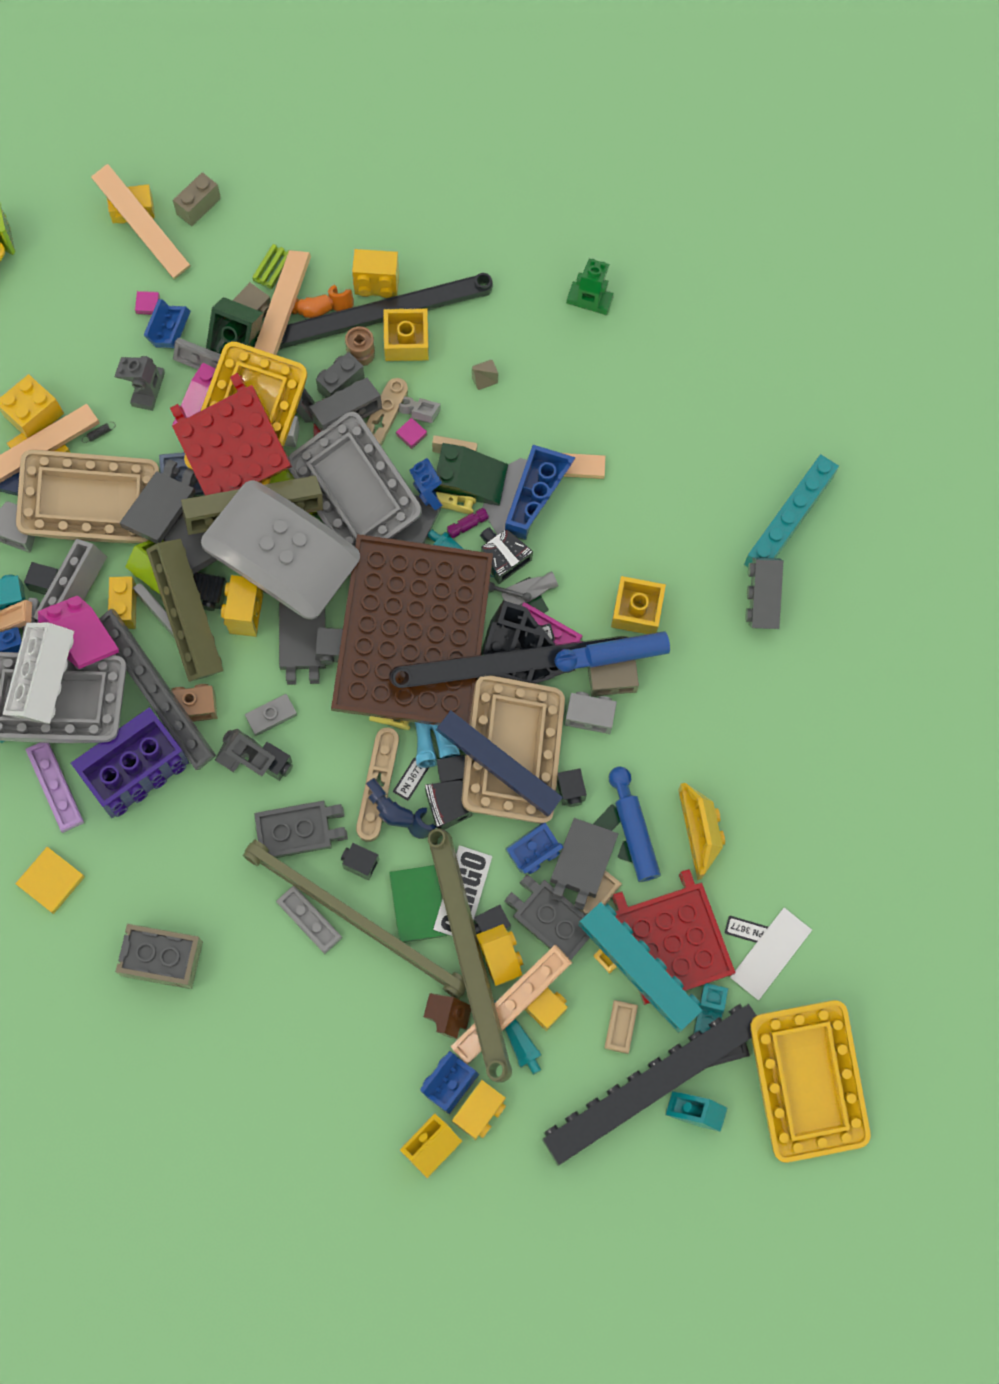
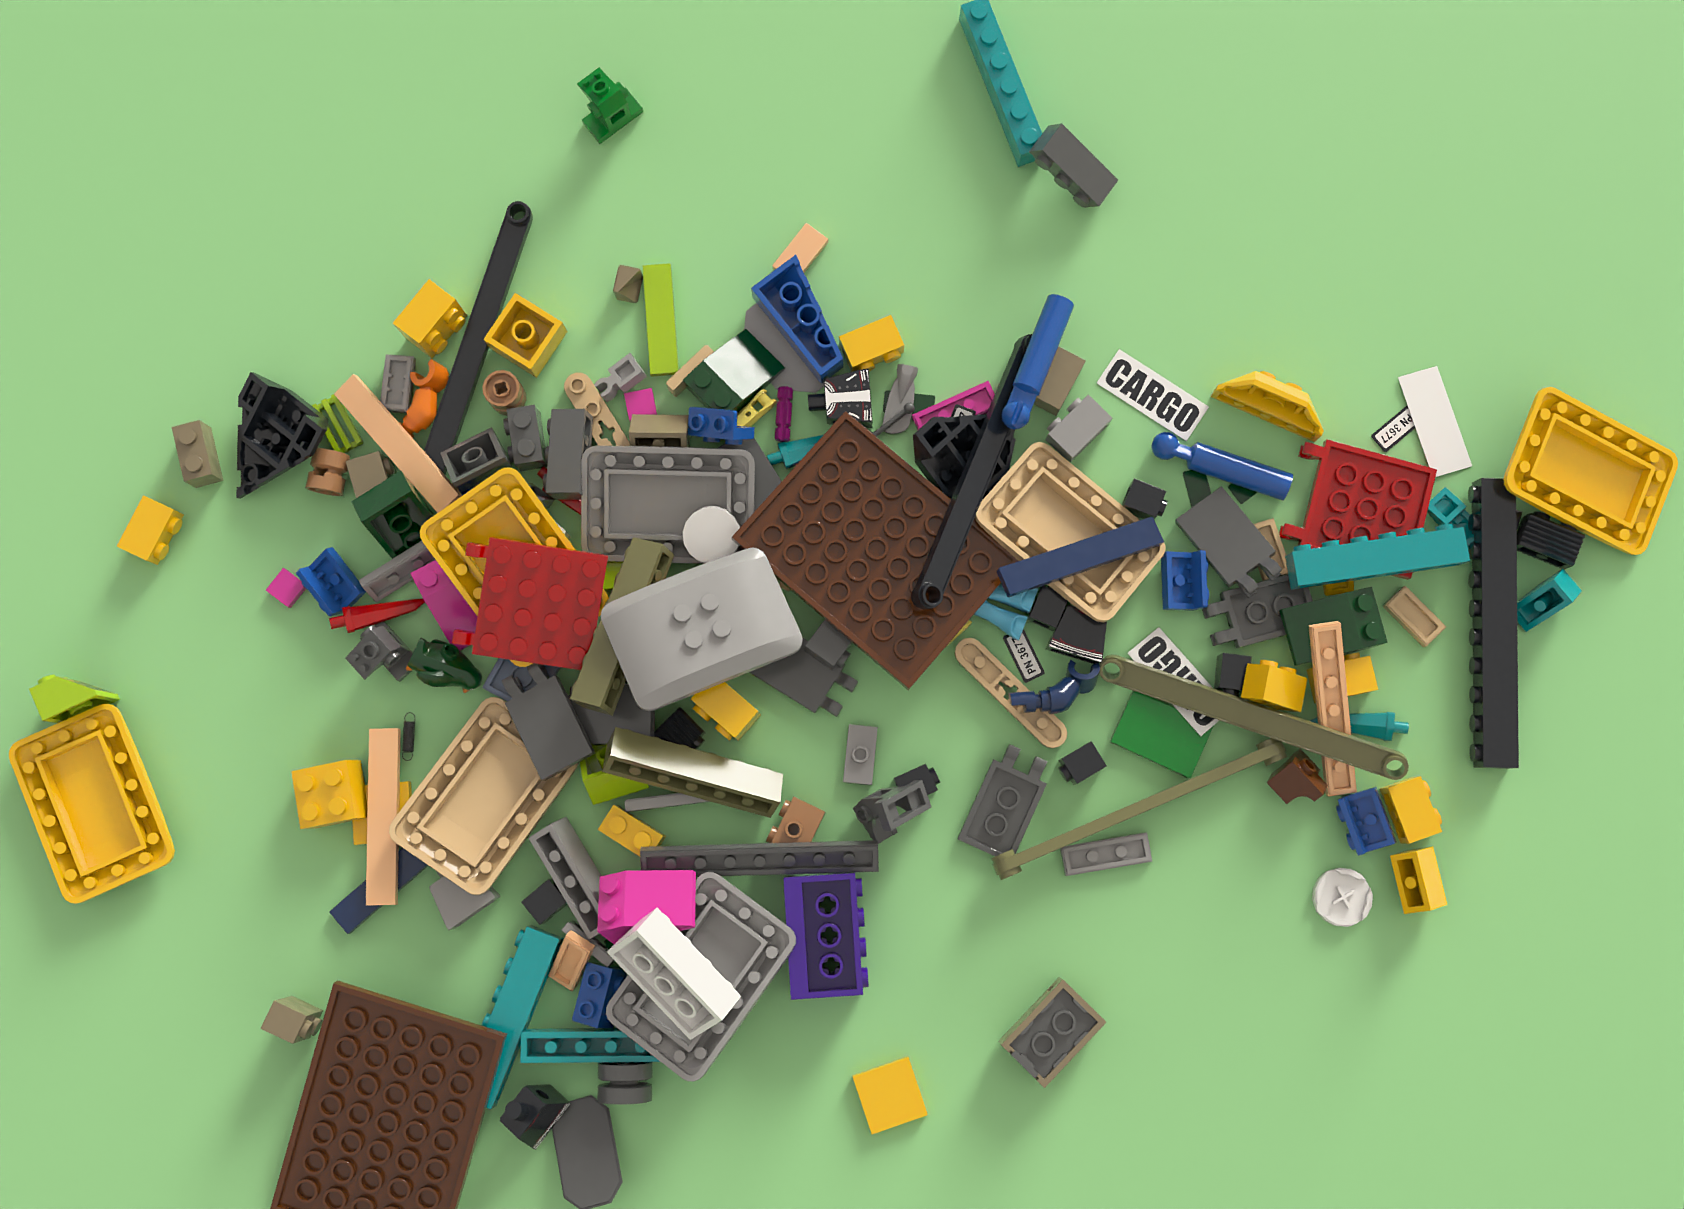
camera: 50 degrees left, 10 degrees up
(54, 786) = (794, 1030): lavender tile -> none
(140, 221) = (183, 533): light nougat tile -> none
(156, 420) = (443, 666): none -> dark green animal
(162, 360) = (367, 615): none -> red bar
(236, 278) = (327, 472): none -> medium nougat wheel
(241, 233) = (274, 433): none -> black wedge
(305, 352) = (475, 460): none -> dark grey slope
(322, 281) = (396, 383): none -> light grey plate
(351, 520) = (710, 534): none -> white tile
(385, 1103) = (1342, 897): none -> white tile
(399, 451) = (659, 430): none -> dark tan brick
(477, 409) = (660, 319): none -> lime tile
(552, 546) = (872, 344): none -> yellow brick
(583, 978) = (1354, 610): none -> dark green slope
(638, 605) = (998, 302): yellow brick -> none
(651, 750) = (1152, 395): none -> sticker
(741, 1085) = (1548, 540): none -> black brick

